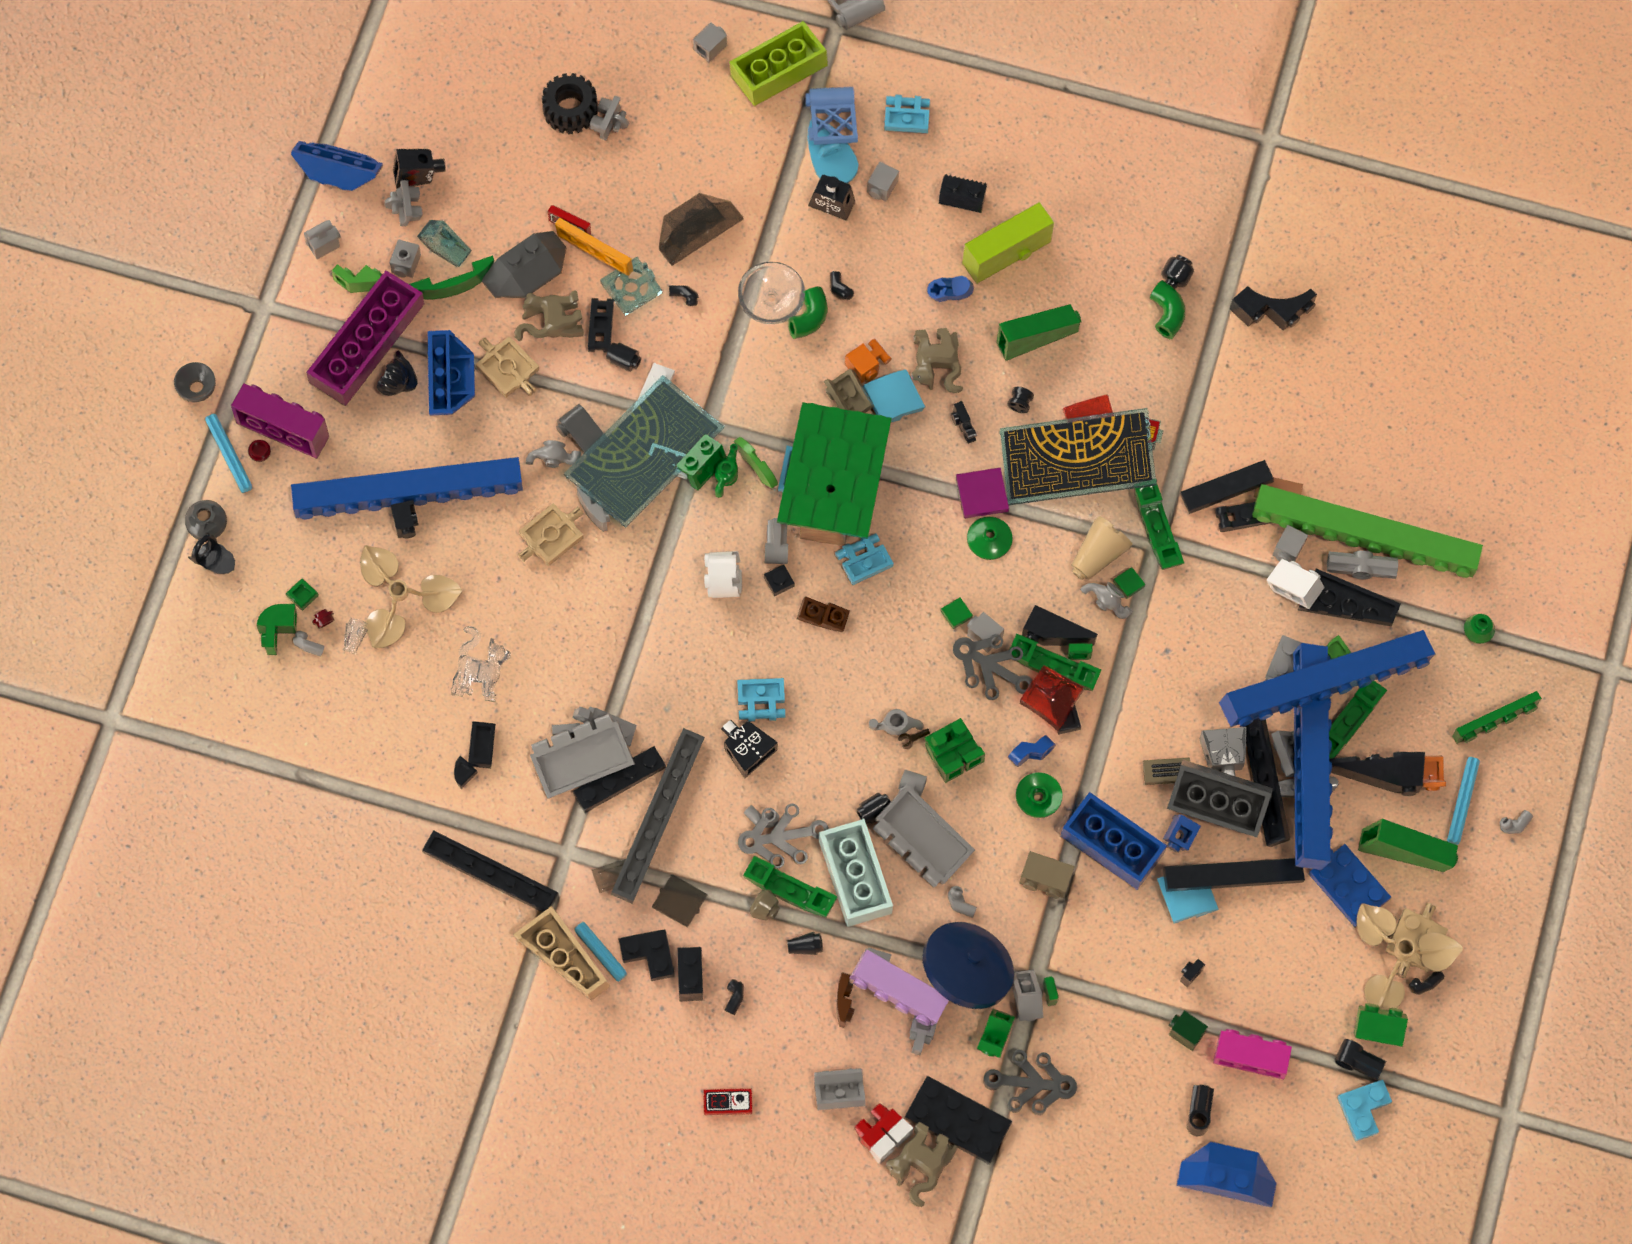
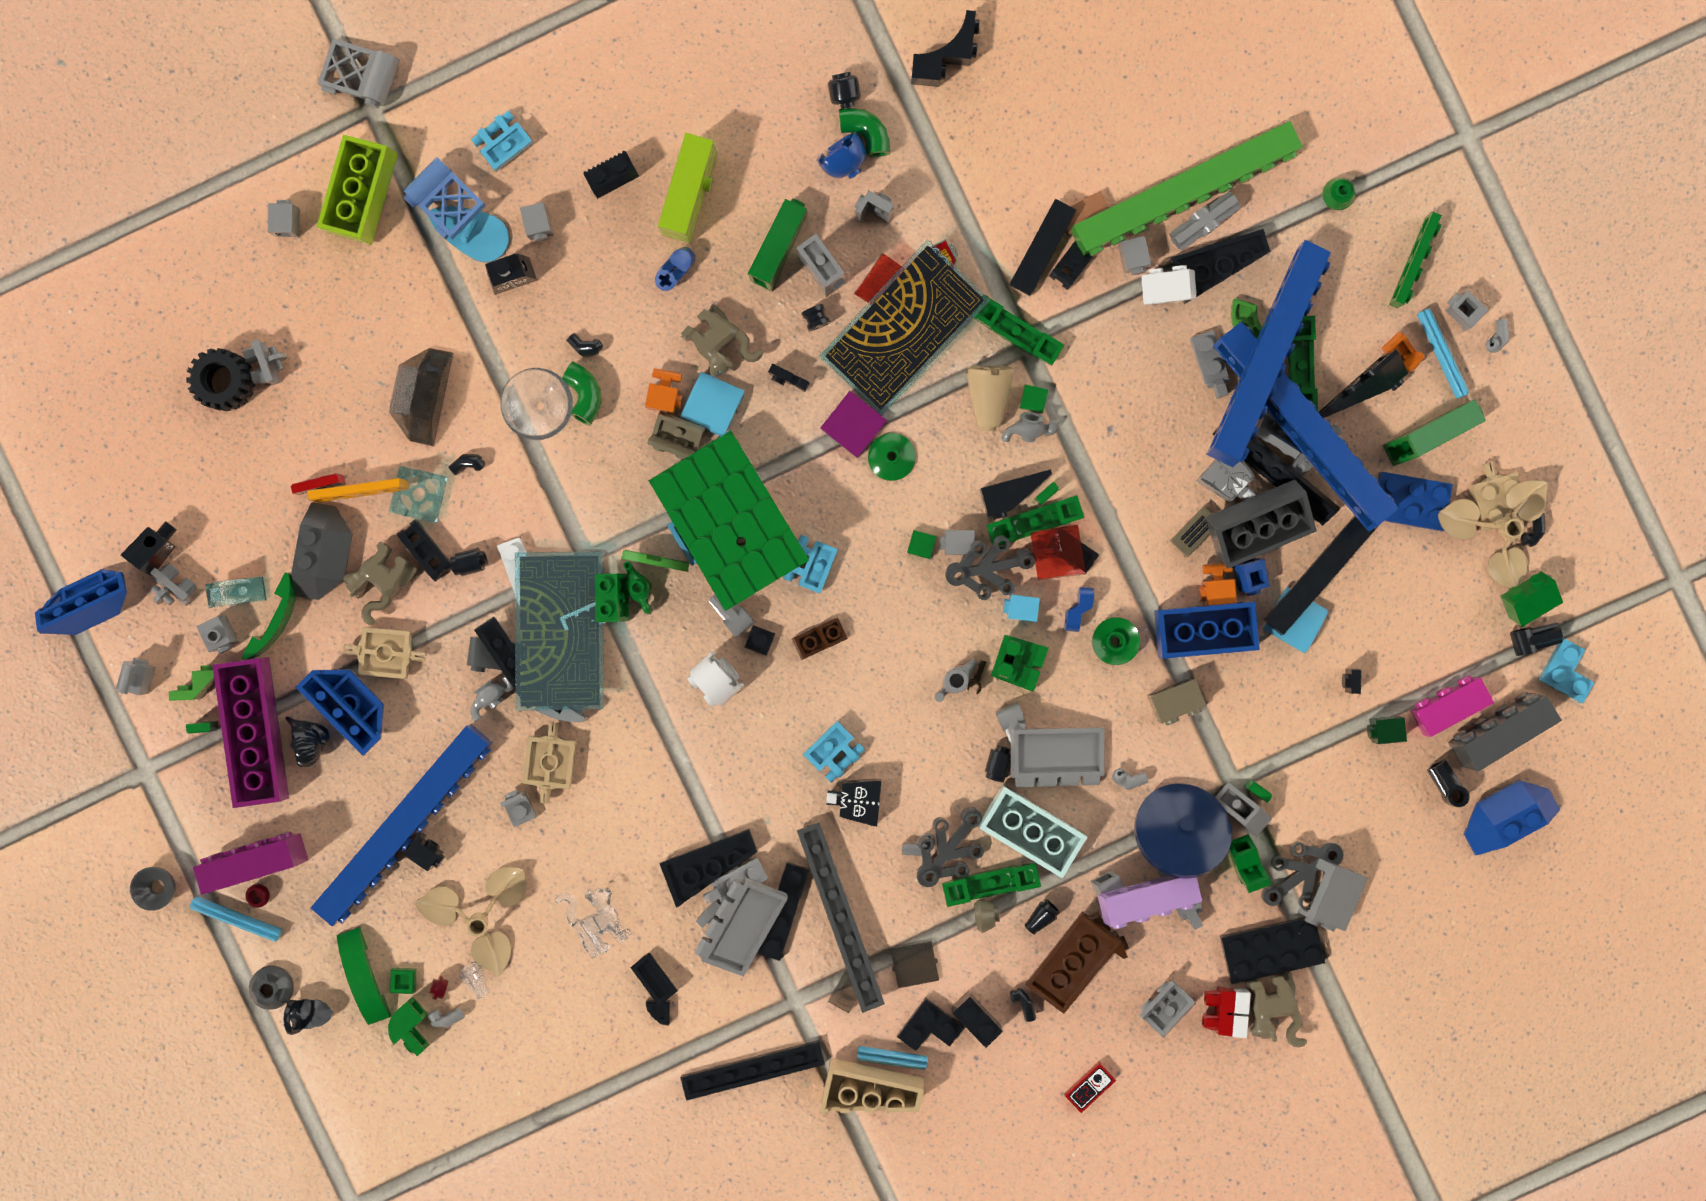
camera: 40 degrees left, 20 degrees up
(275, 566) = (361, 977): none -> green slope
(334, 308) = (202, 727): none -> green tile
(499, 546) = (518, 807): none -> light grey bracket
(580, 690) = (698, 868): none -> black wing
(592, 425) = (499, 647): none -> black tile
(799, 991) = (1073, 962): none -> reddish brown plate
(990, 714) = (1021, 608): none -> medium azure brick
(1039, 1111) = (1335, 897): none -> light grey panel
(1055, 363) = (820, 265): none -> light grey panel
(1127, 354) = (876, 204): none -> light grey bracket
(1136, 313) = (844, 157): none -> blue cylinder
(1151, 820) = (1218, 590): none -> orange brick
(1276, 1100) = (1504, 731): none -> dark grey brick
(1511, 775) = (1473, 309): none -> light grey brick

